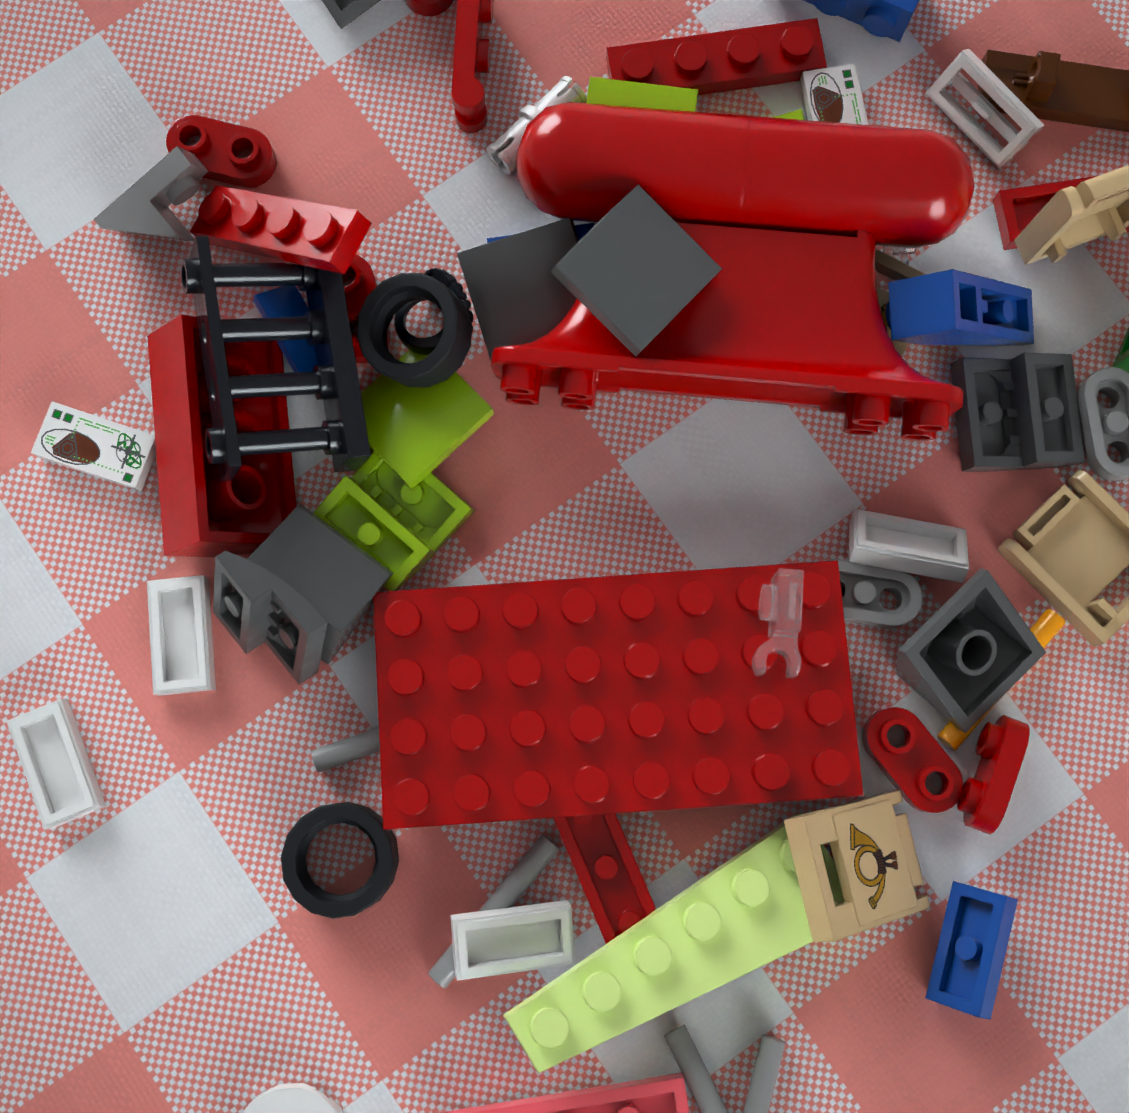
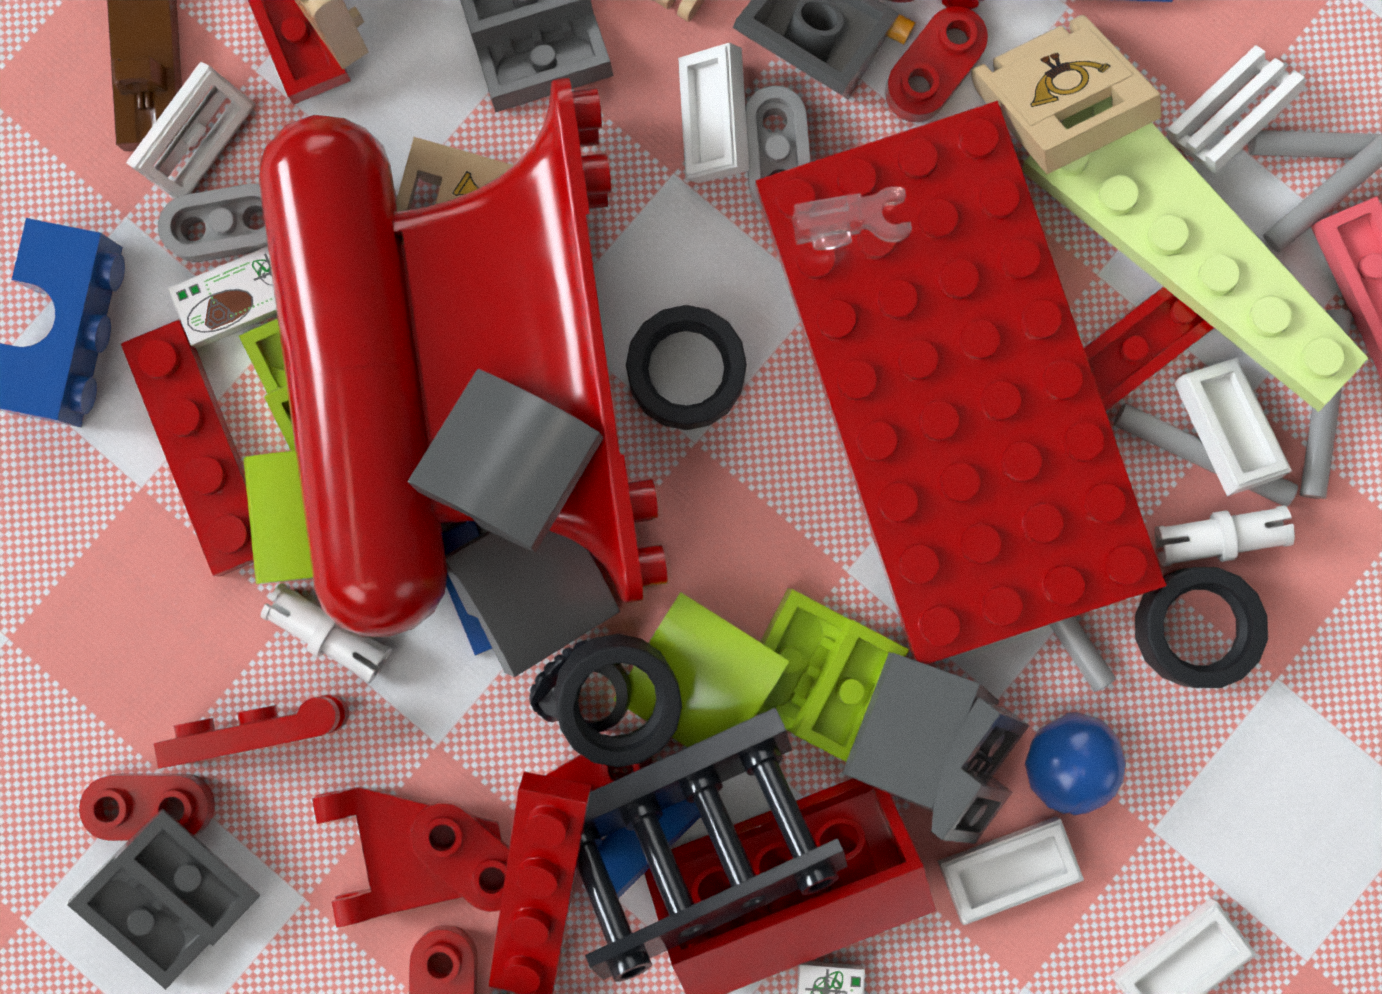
camera: 105 degrees left, 5 degrees up
(254, 716) = (1075, 764): none -> blue hair
(321, 186) = (466, 858): none -> red plate
(342, 150) = (394, 872): none -> red flag
(416, 905) = (1224, 536): none -> white pin
(499, 1033) = (1322, 433): none -> light grey bar
(691, 423) = (697, 321): none -> black tyre
(817, 1025) = (1267, 74): none -> white tile
(914, 87) = (226, 222): none -> light grey plate
(959, 310) = (449, 108): blue slope -> none

